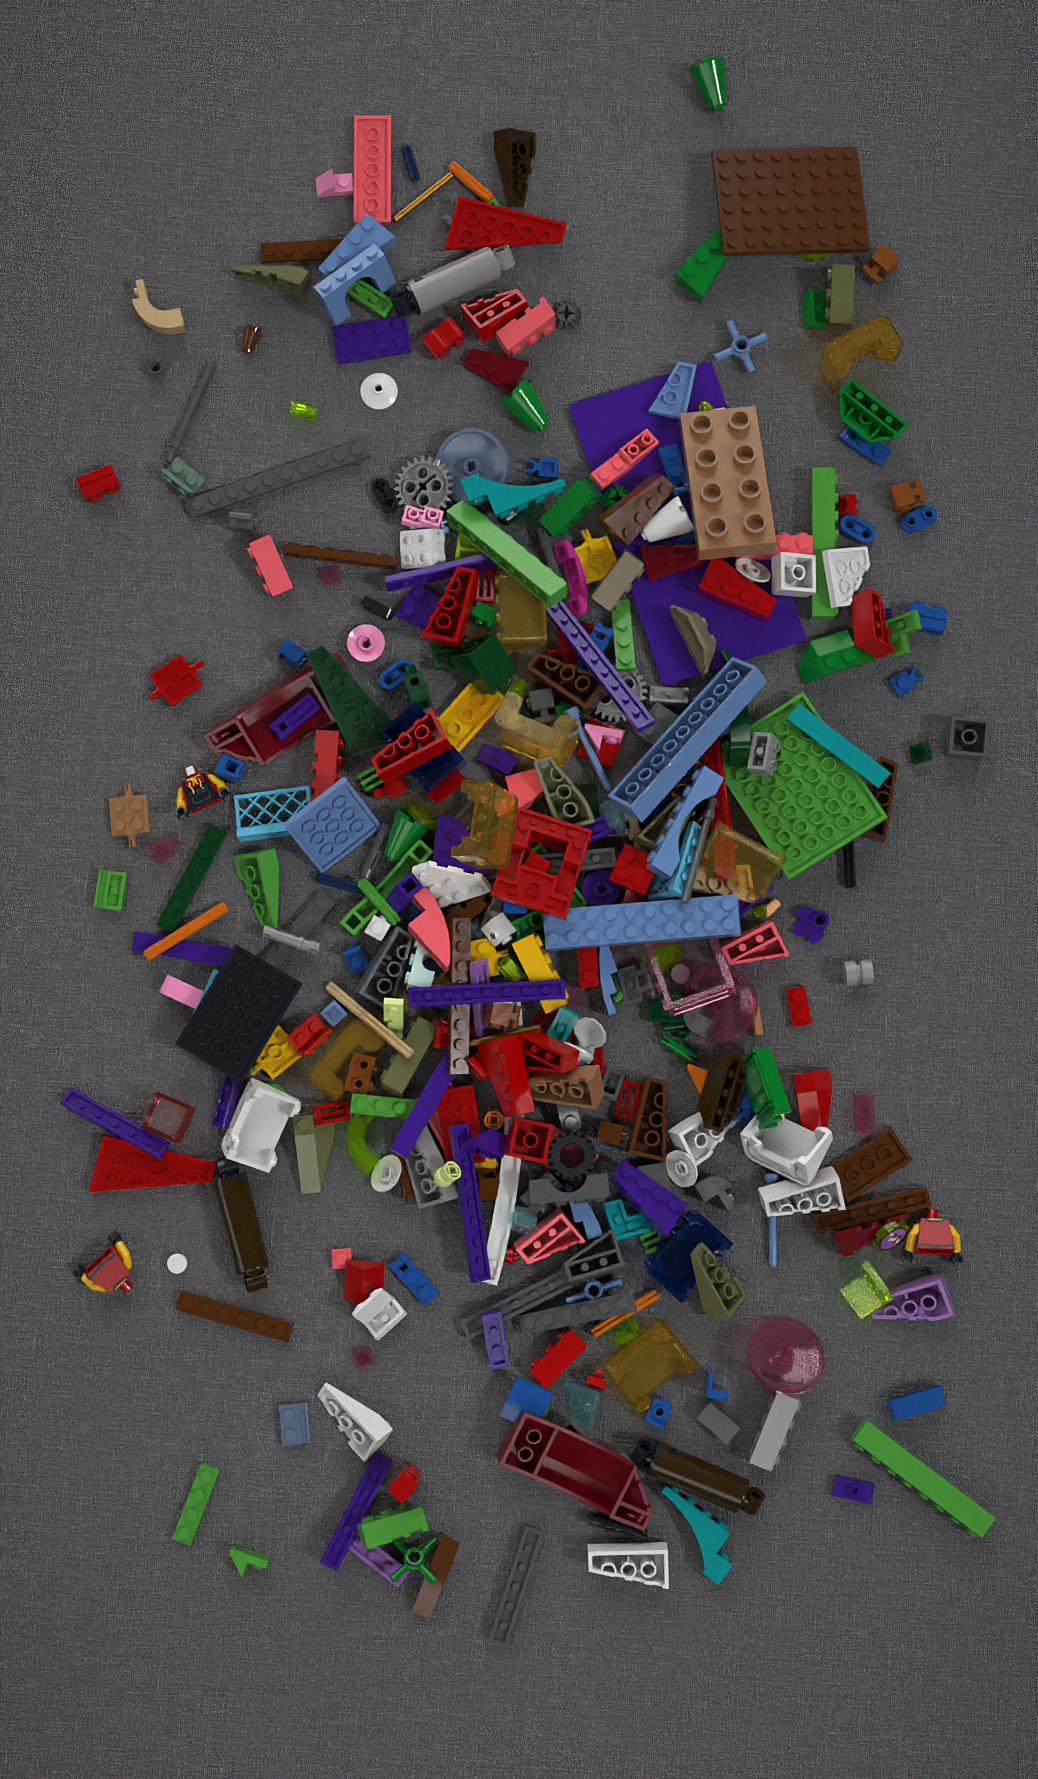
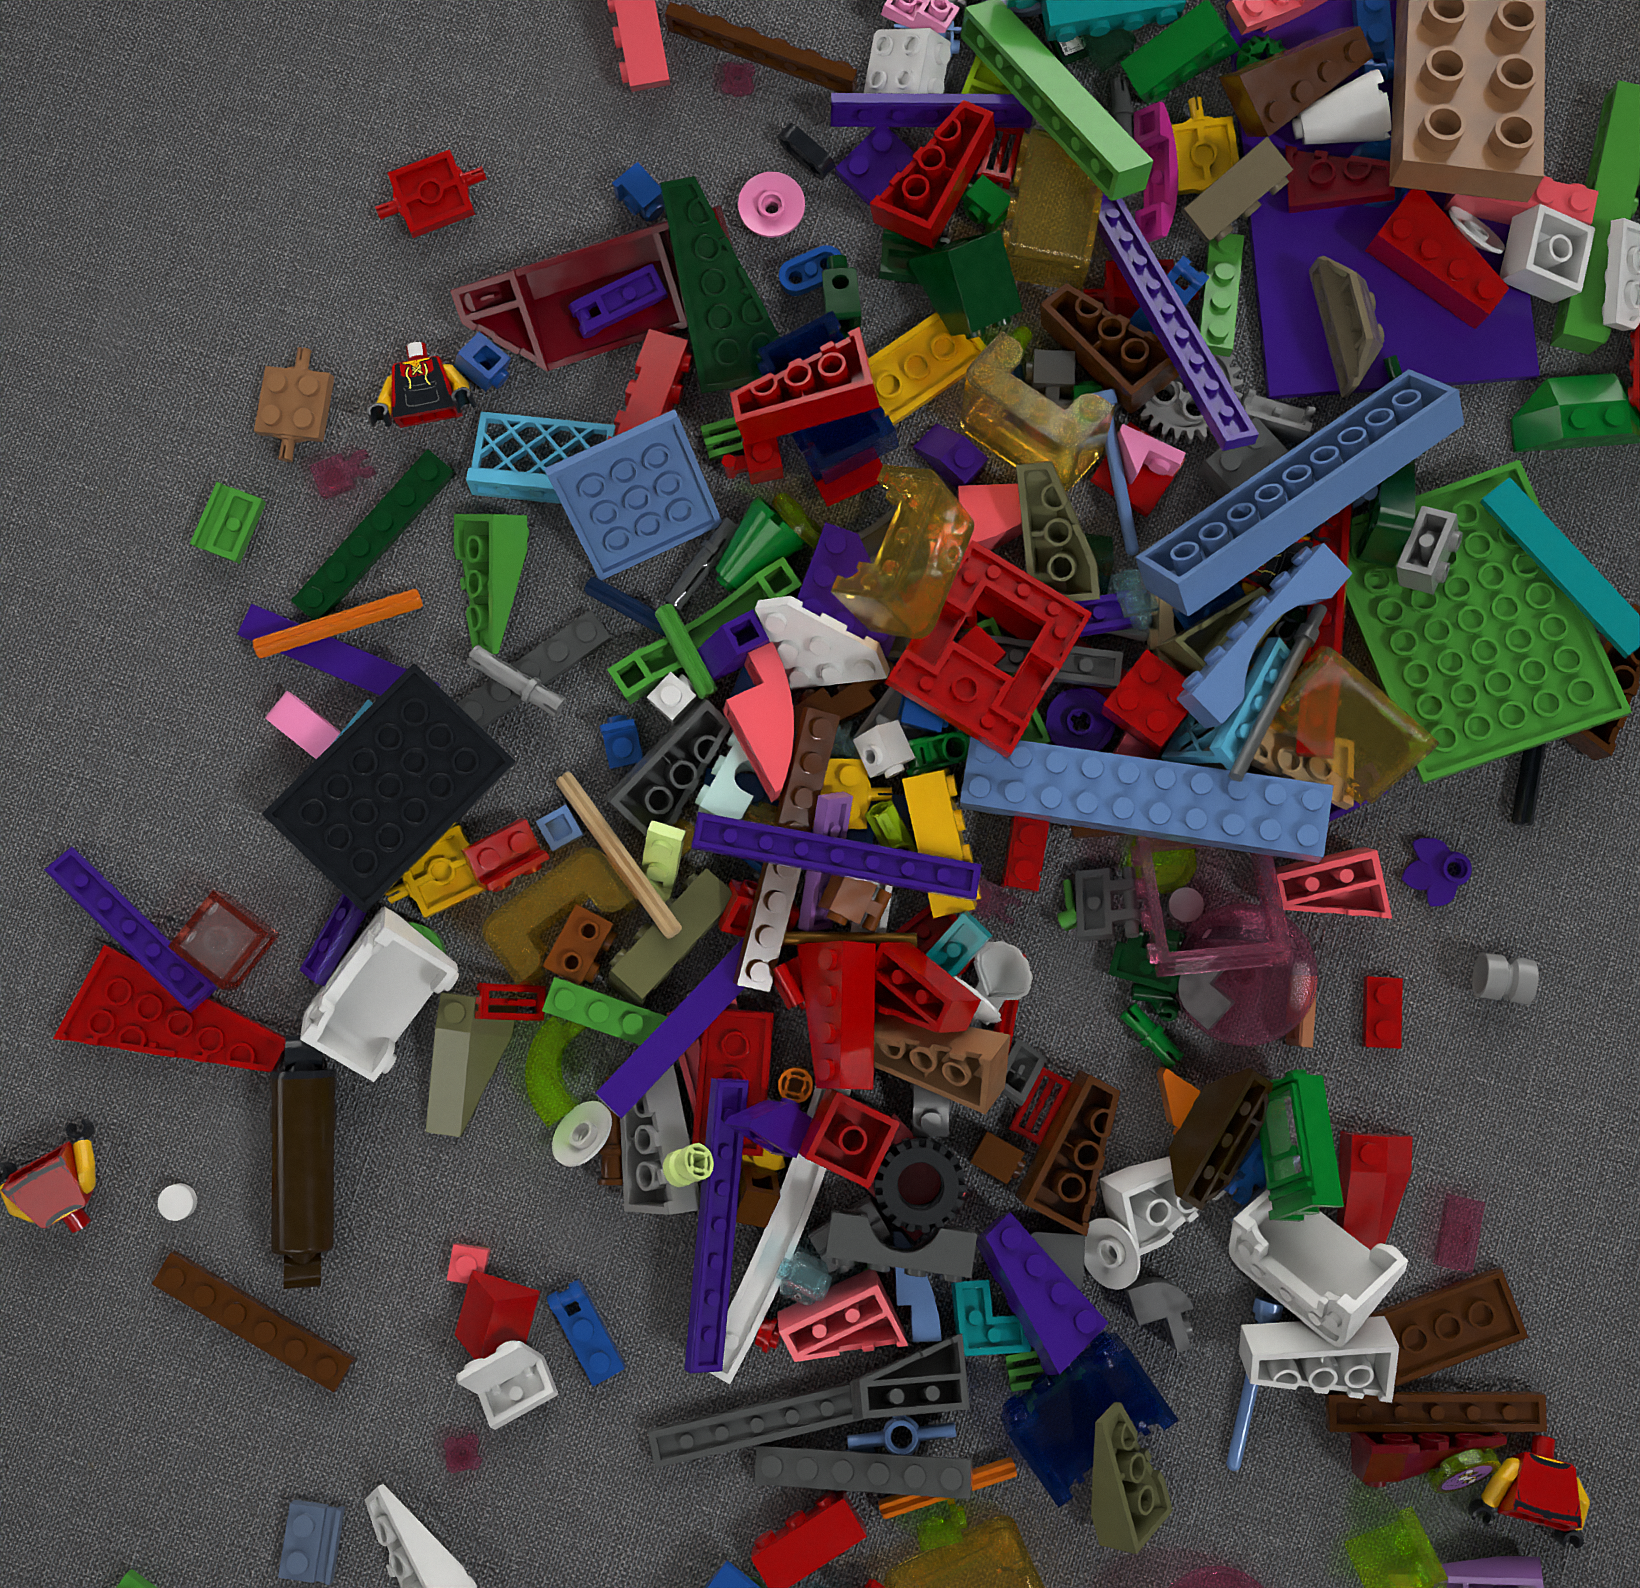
camera: 15 degrees right, 0 degrees up
(494, 1339) = (703, 1481): dark purple plate -> none
(606, 968) = (1057, 863): medium blue slope -> none
(765, 911) = (1363, 829): arm -> none

